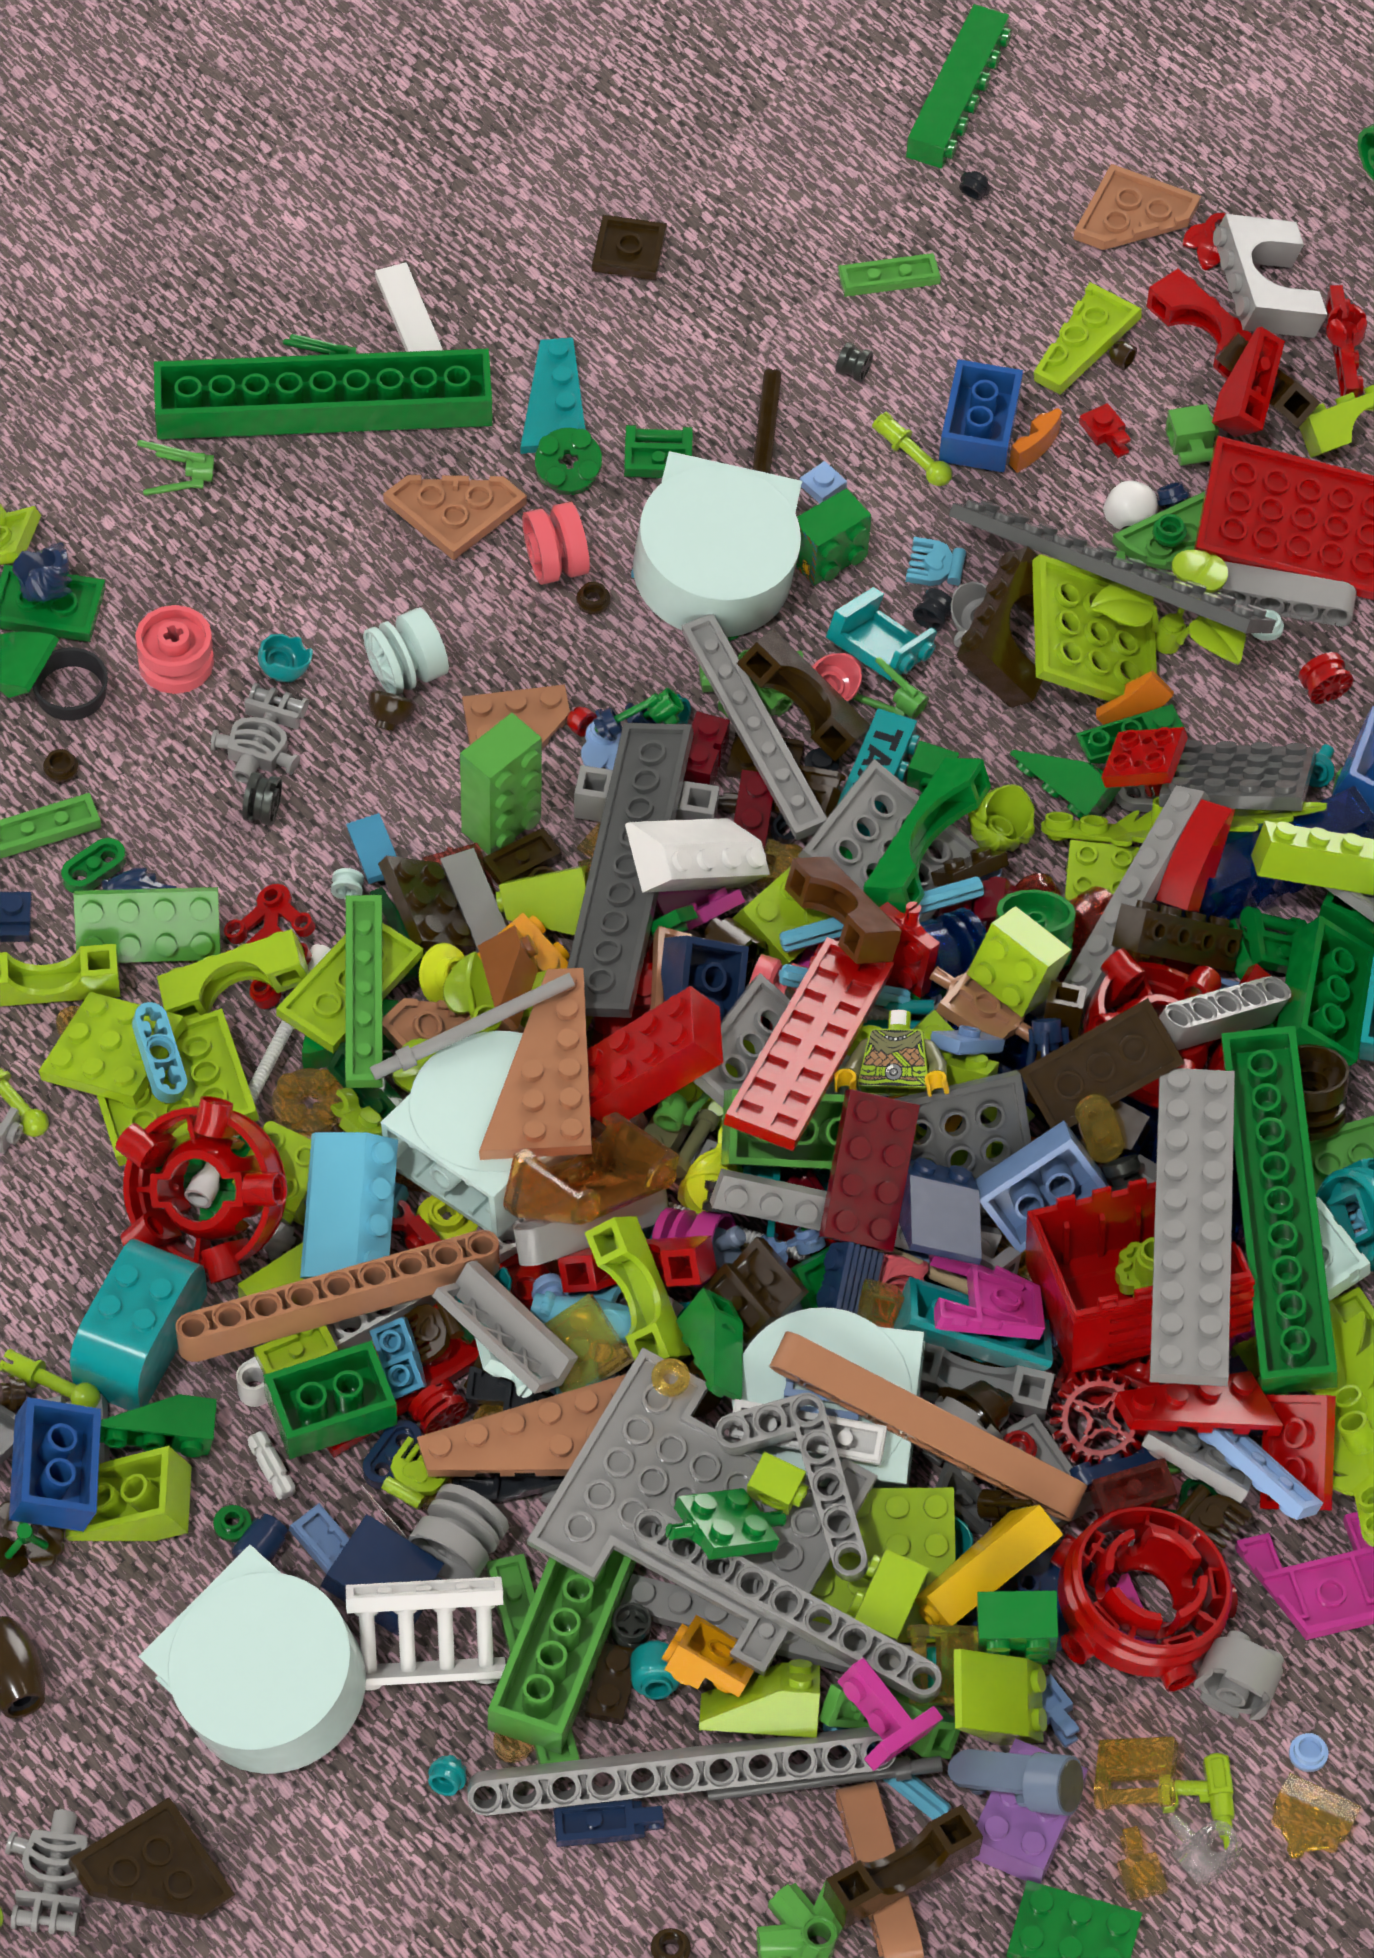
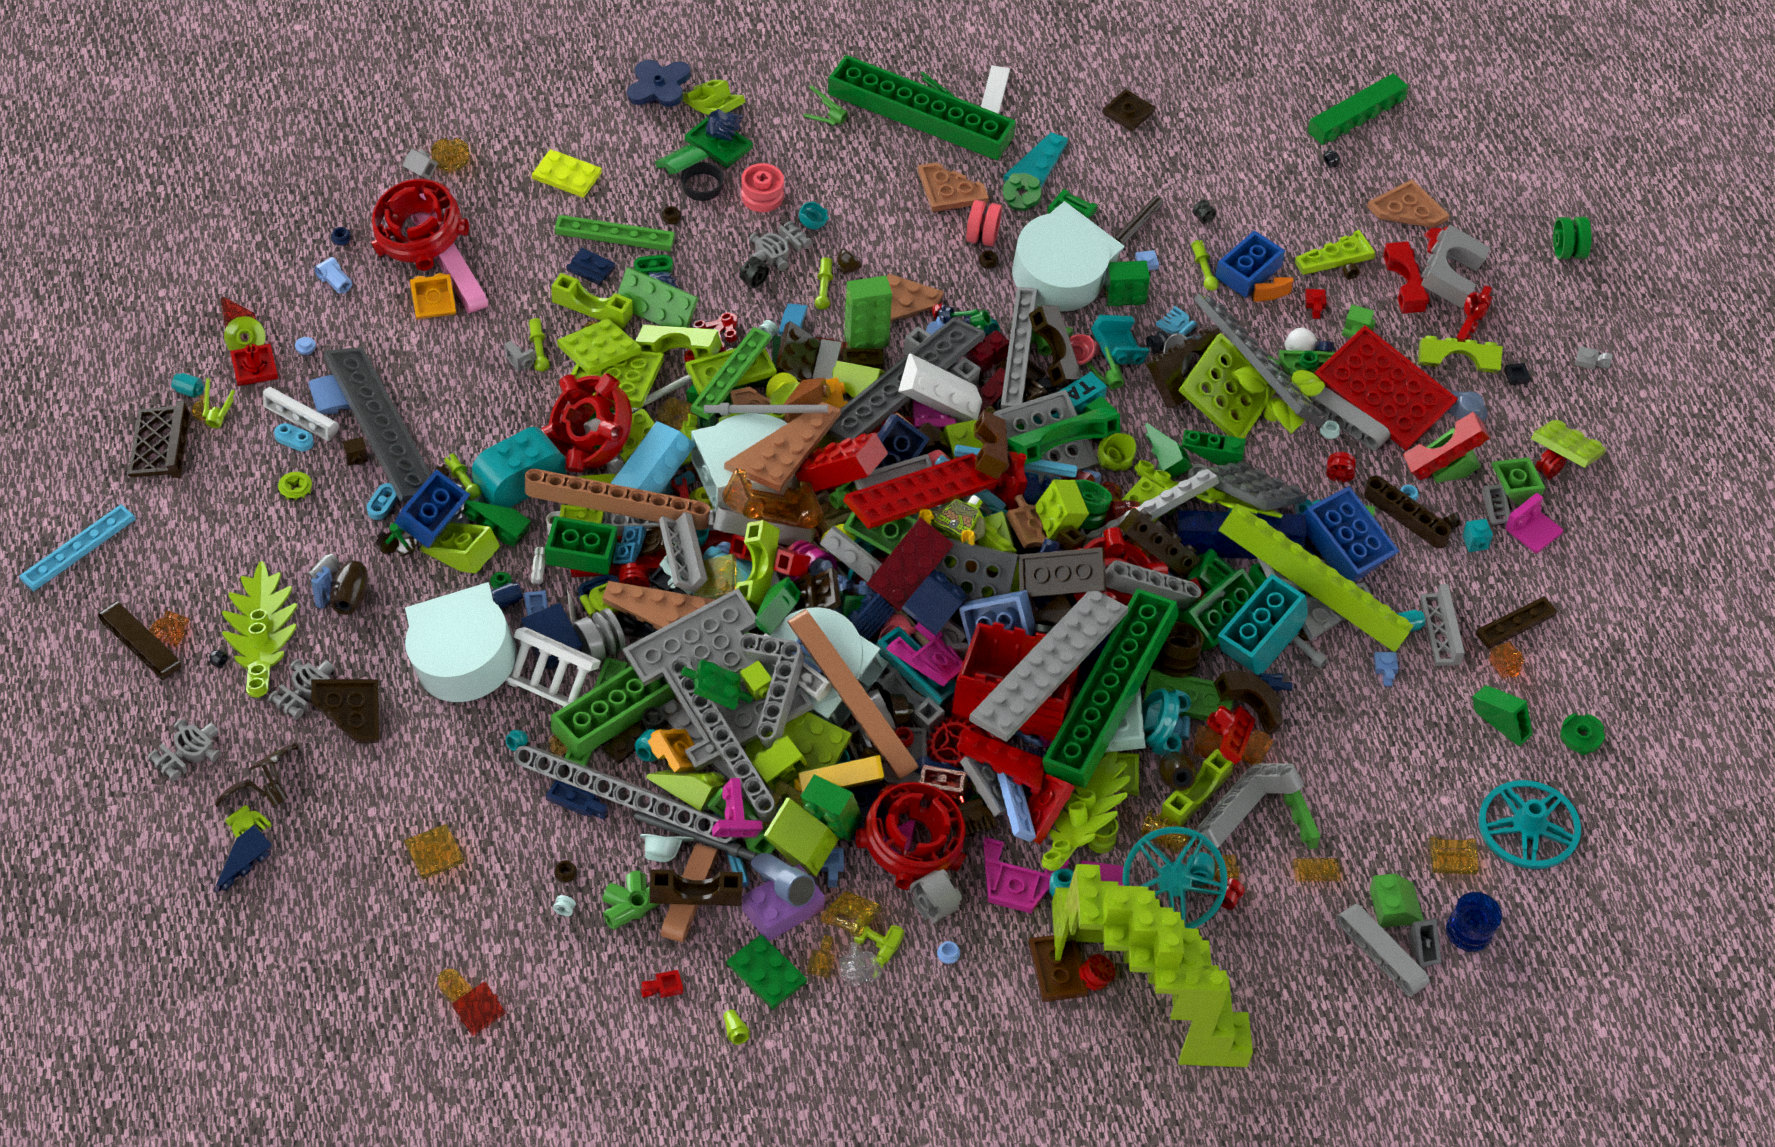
camera: 30 degrees right, 5 degrees down
(155, 1067) = (612, 346): medium azure beam -> none
(392, 793) = (822, 301): none -> lime pin
(406, 651) = (872, 238): light aqua wheel -> none
(674, 1367) = (737, 602): clear yellow plate -> none
(676, 919) = (910, 414): green plate -> none
(793, 1827) = (662, 848): none -> light aqua piece
(880, 1303) = (875, 630): clear yellow slope -> none
(889, 274) = (1255, 181): bright green tile -> none
(967, 1041) = (1006, 531): medium blue plate -> none
(978, 864) = (1089, 465): dark brown plate -> none
(1097, 1126) = (1043, 601): clear yellow plate -> none
(1139, 697) = (1230, 426): orange slope -> none
(1145, 758) = (1205, 452): red plate -> none
(1196, 856) = (1192, 506): red slope -> none
(1248, 389) = (1400, 309): red slope -> none
(1288, 396) = (1416, 317): dark brown arch -> none
(1312, 1816) = (927, 982): clear yellow slope -> none

